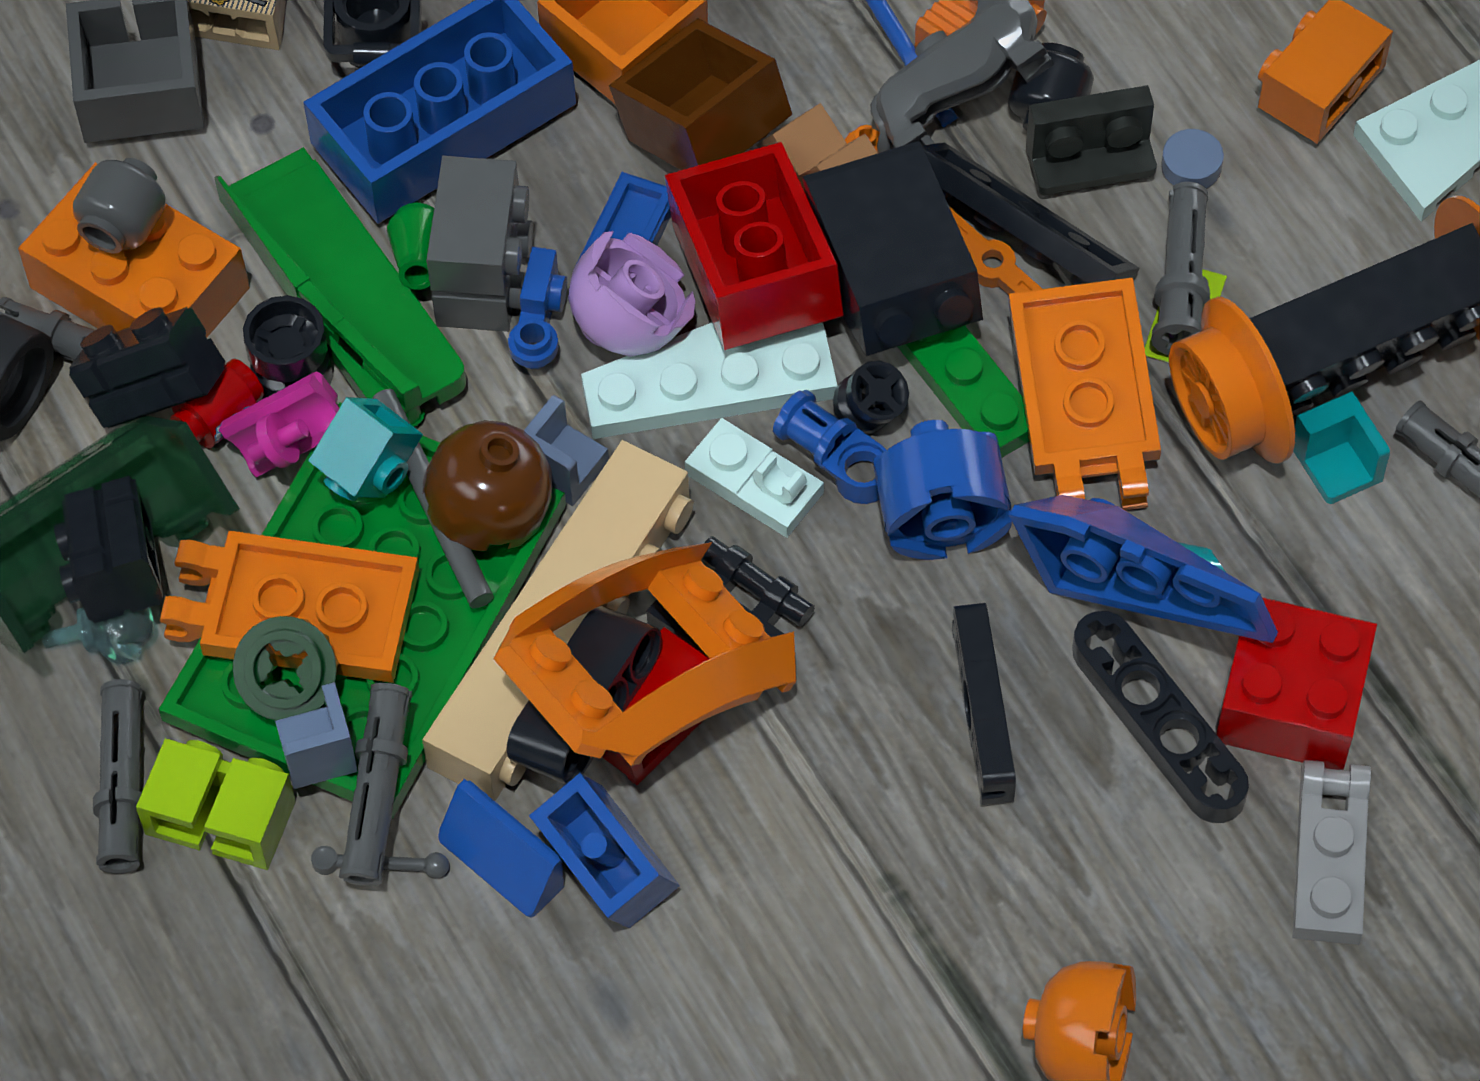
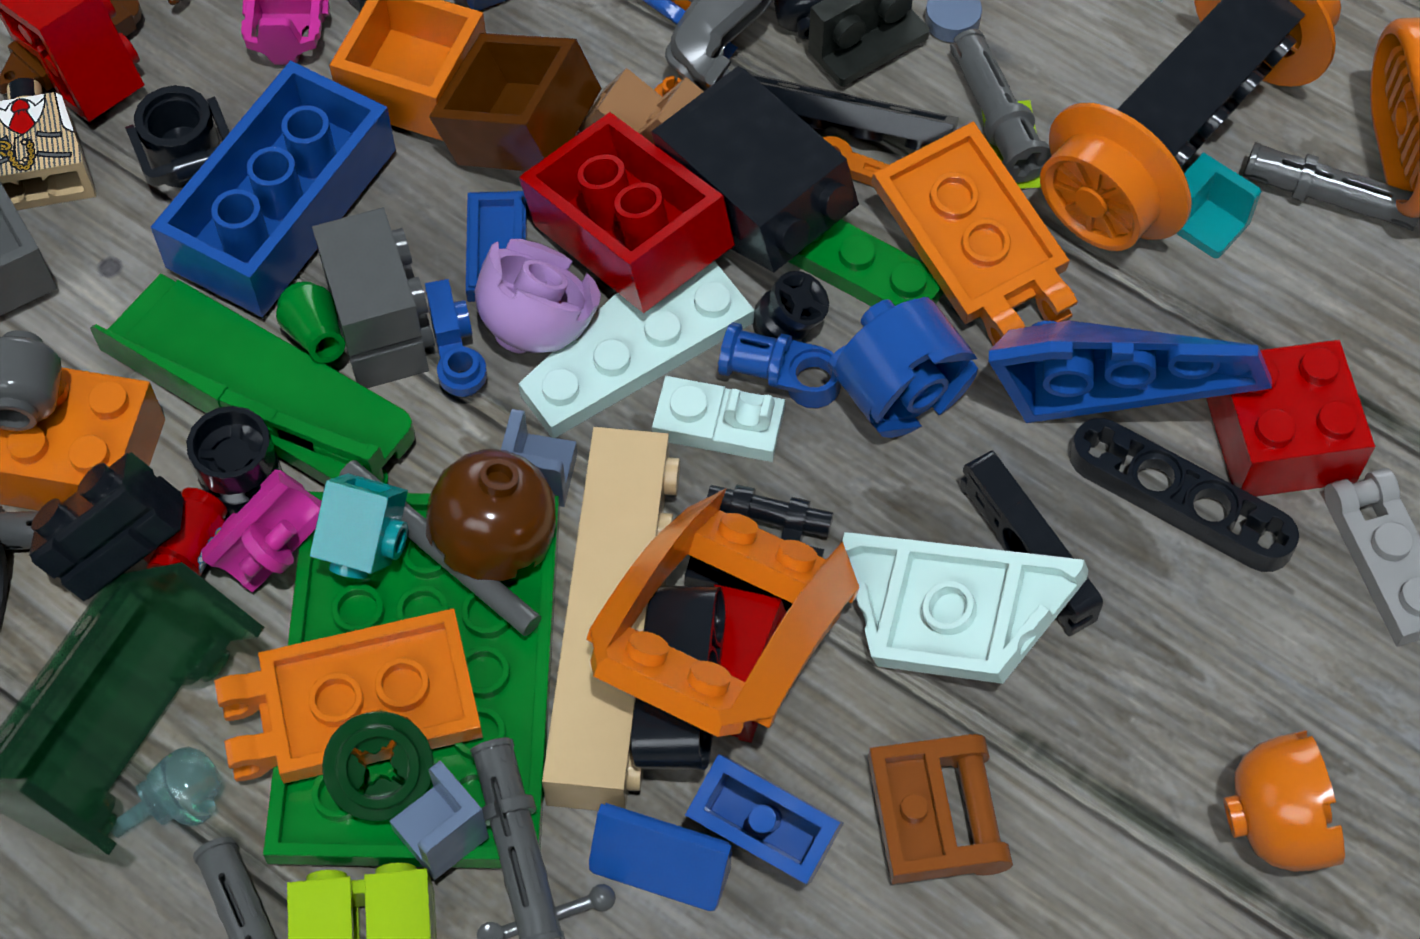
camera: 25 degrees left, 0 degrees up
(109, 550) = (147, 717): black brick -> none
(750, 901) = (917, 811): none -> dark orange plate
(878, 731) = (956, 604): none -> light aqua wing

